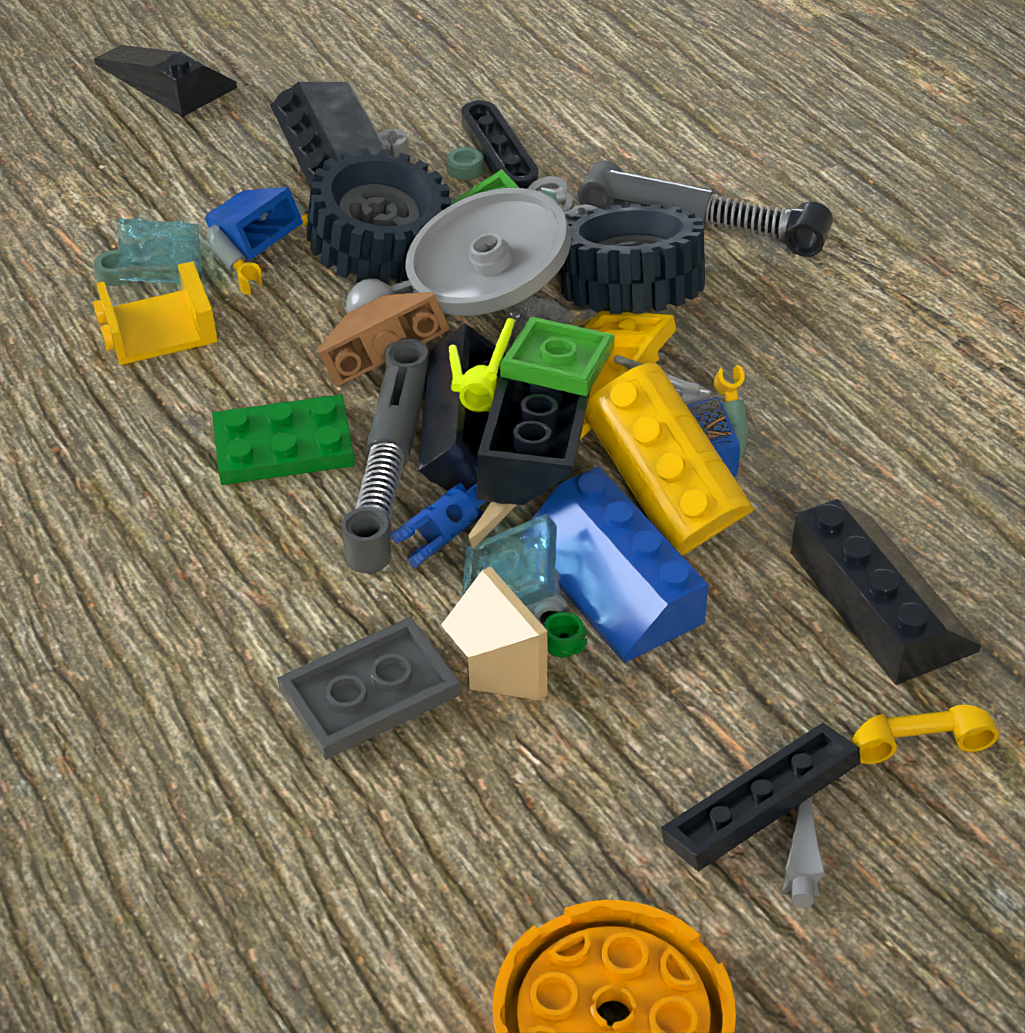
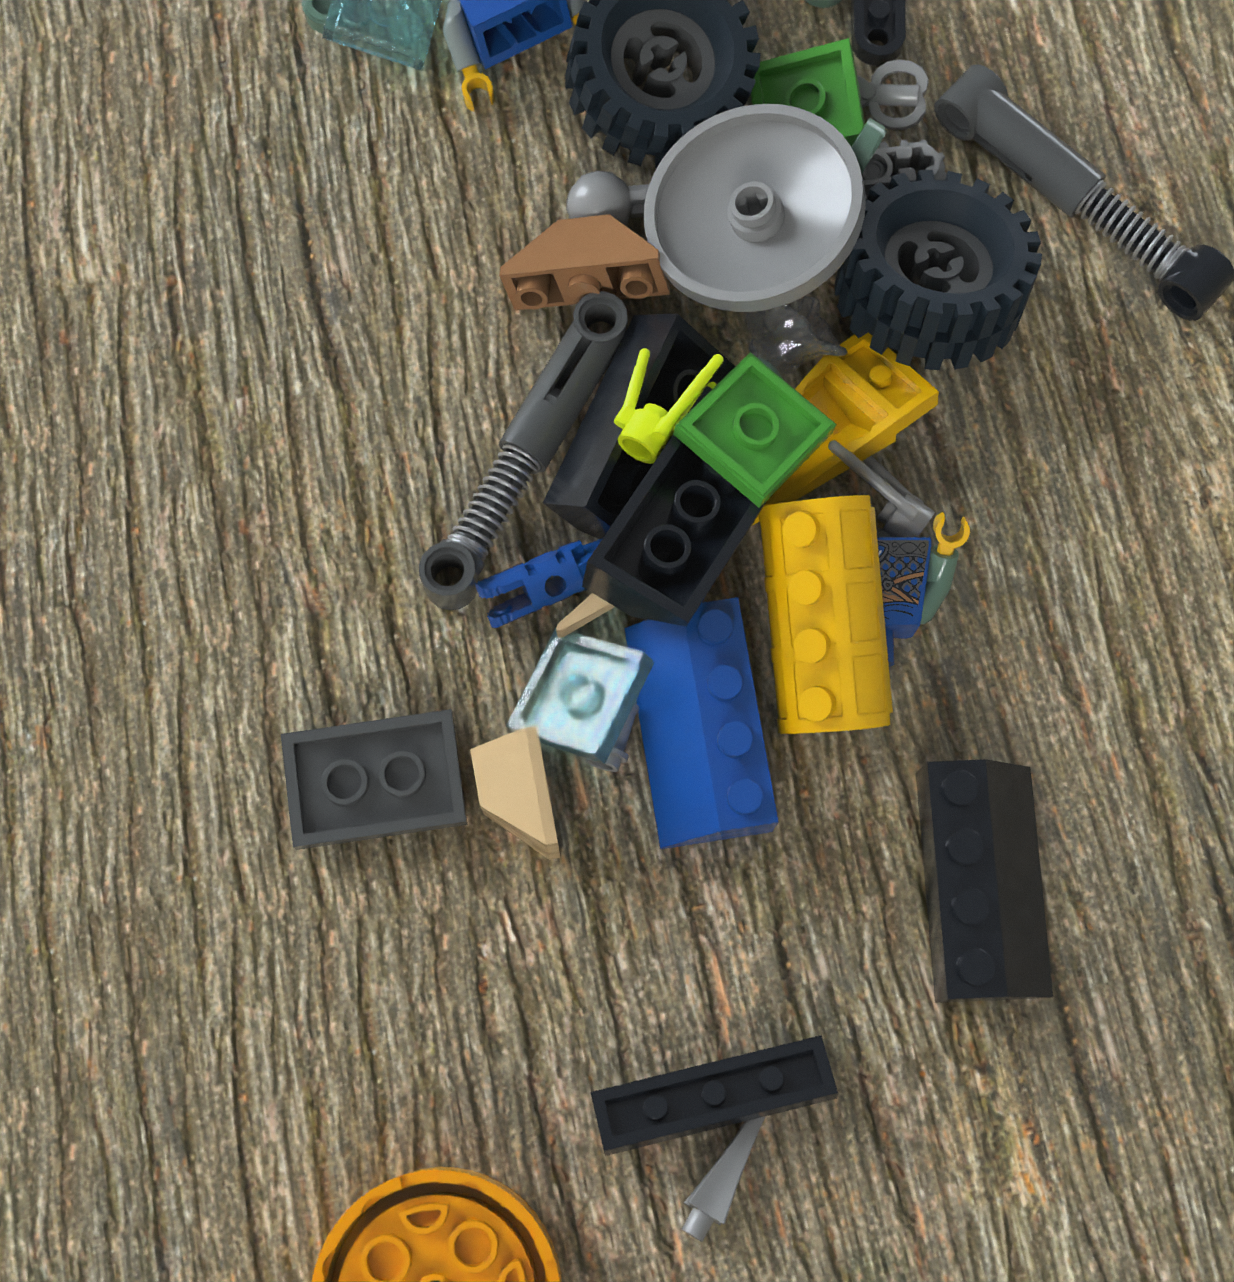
camera: 20 degrees right, 30 degrees up
(157, 323) = (343, 121): yellow panel -> none
(282, 439) = (420, 373): green plate -> none
(565, 634) = (612, 781): green plate -> none
(971, 726) = (973, 1100): yellow bar -> none

